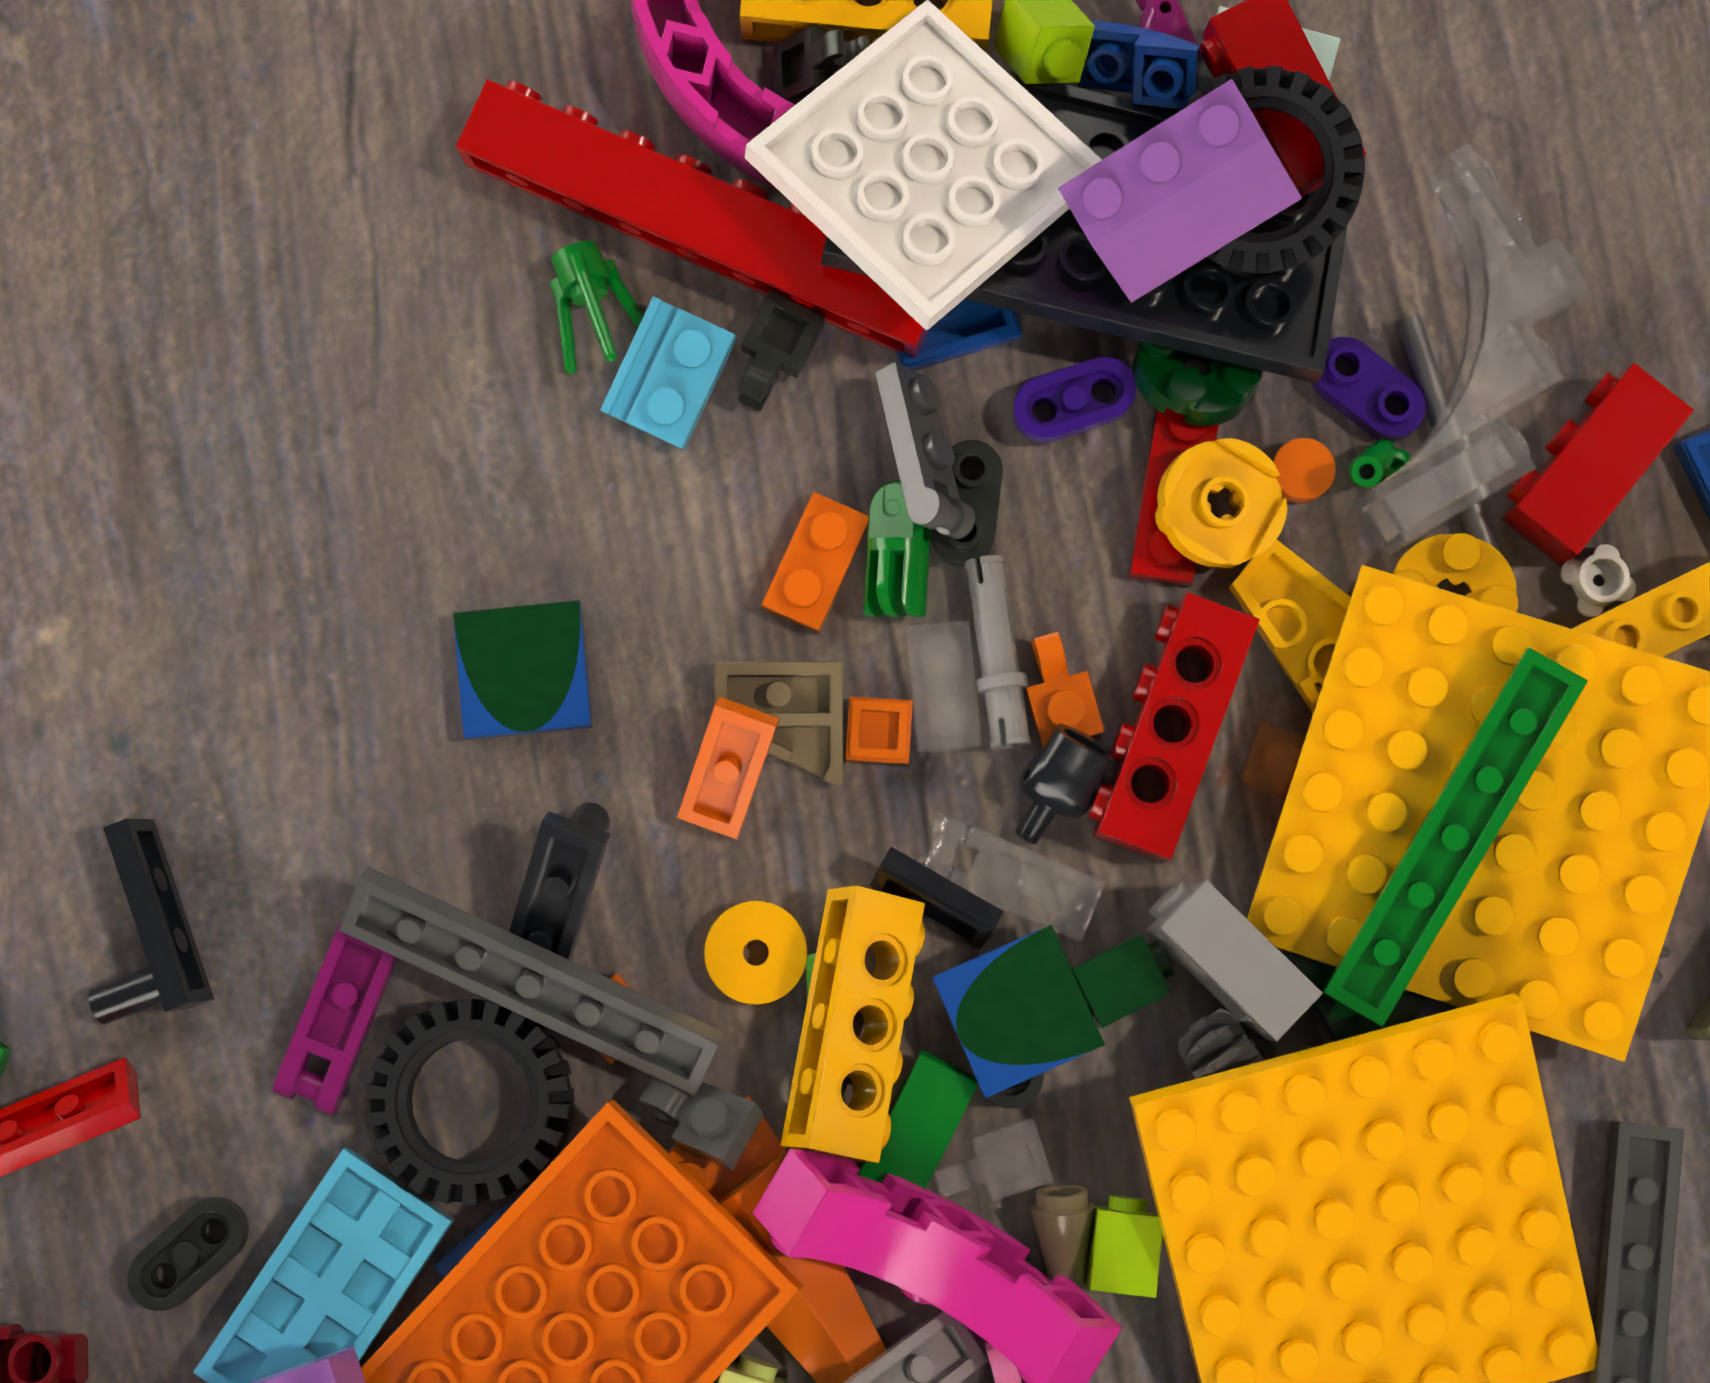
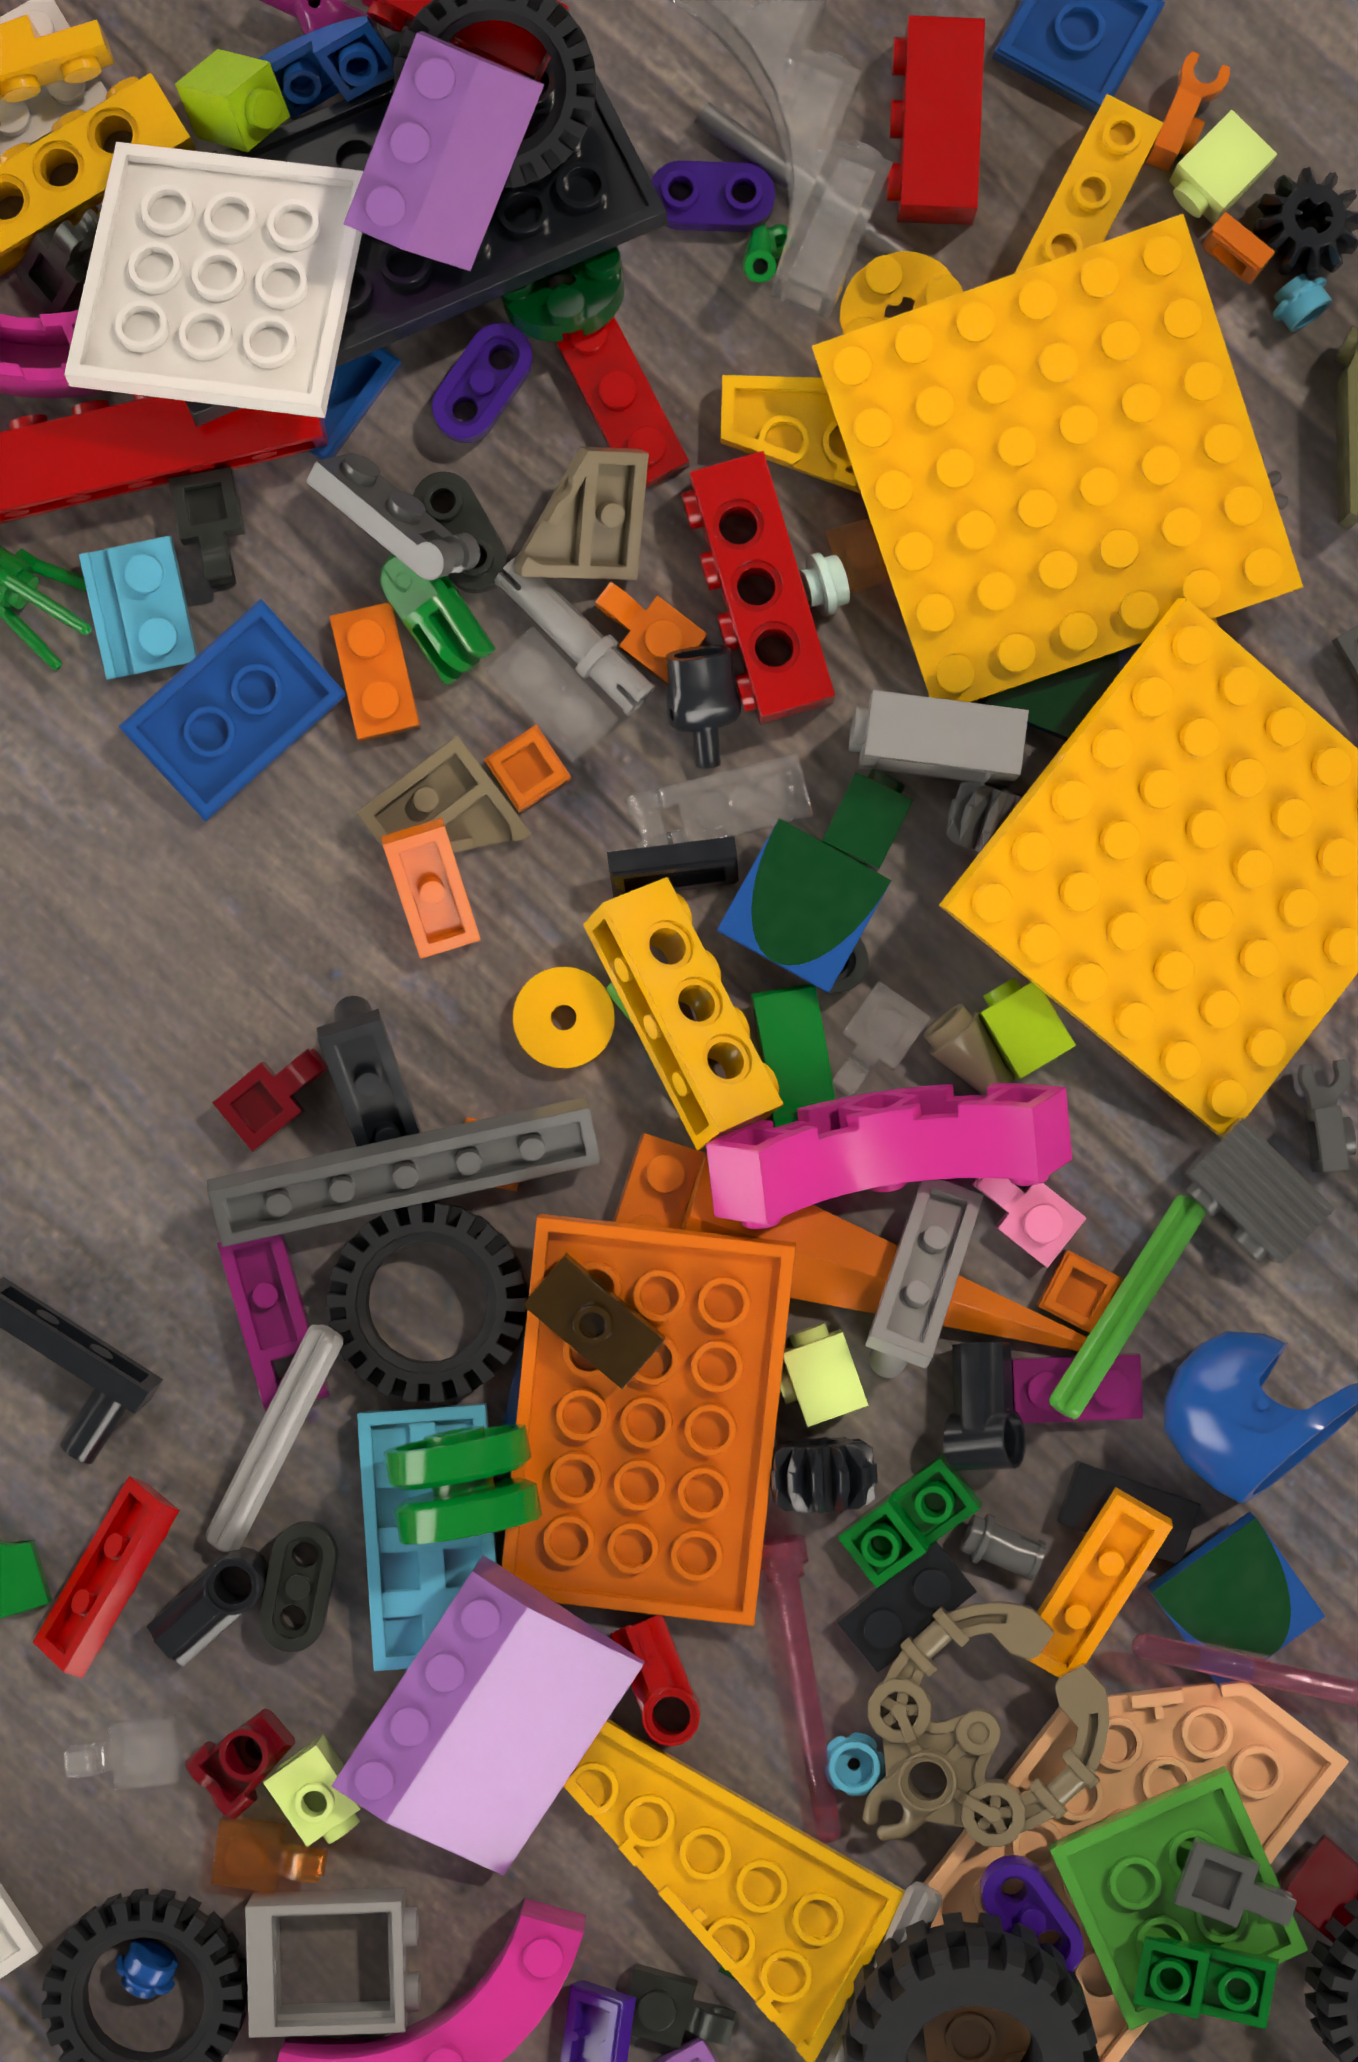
camera: 35 degrees left, 5 degrees up
(104, 1213) = (207, 1607): none -> black piece
(261, 1117) = (274, 1438): none -> light grey axle
(377, 1279) = (464, 1492): none -> green wheel
(466, 837) = (265, 1101): none -> dark red plate
(522, 670) = (206, 935): dark green tile -> none
(588, 1224) = (594, 1320): none -> dark brown plate
(680, 508) = (232, 710): none -> blue tile
(709, 1125) = (629, 1178): dark grey plate -> none
(1079, 570) = (591, 519): none -> dark tan wing
(1187, 514) = (687, 352): yellow plate -> none
(1230, 762) = (825, 583): none -> light aqua plate
(1304, 470) = (709, 302): orange tile -> none
(1455, 836) = (1041, 508): green plate -> none
(1614, 571) = (1010, 196): white plate -> none

